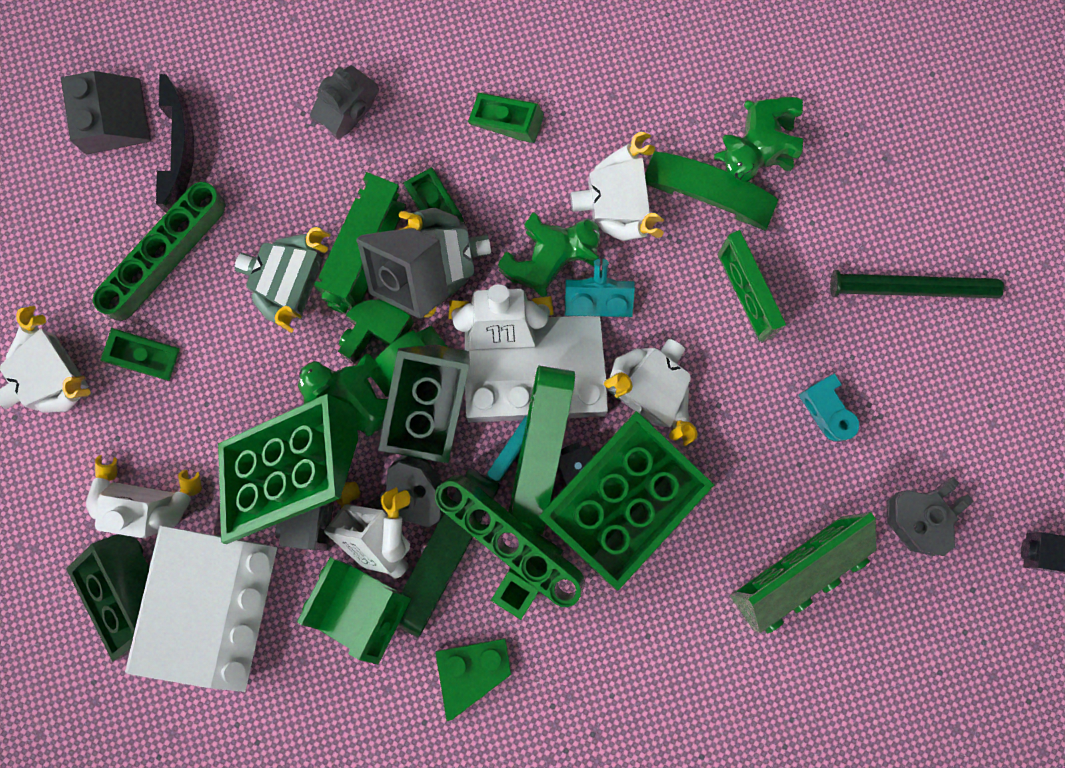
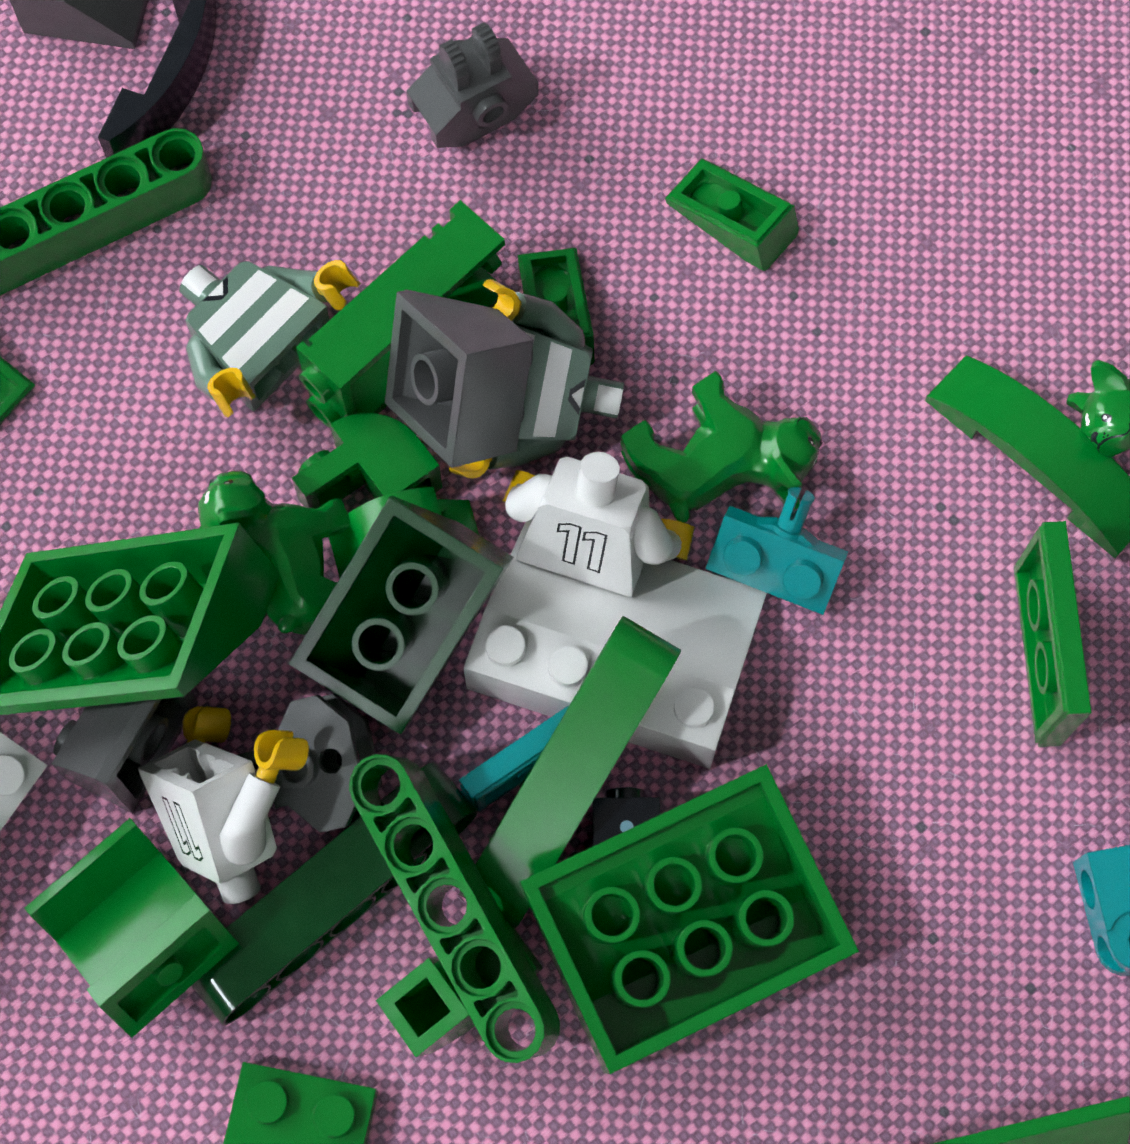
camera: 20 degrees right, 10 degrees down
(620, 193) = (880, 398): torso -> none
(655, 387) = (816, 743): torso -> none

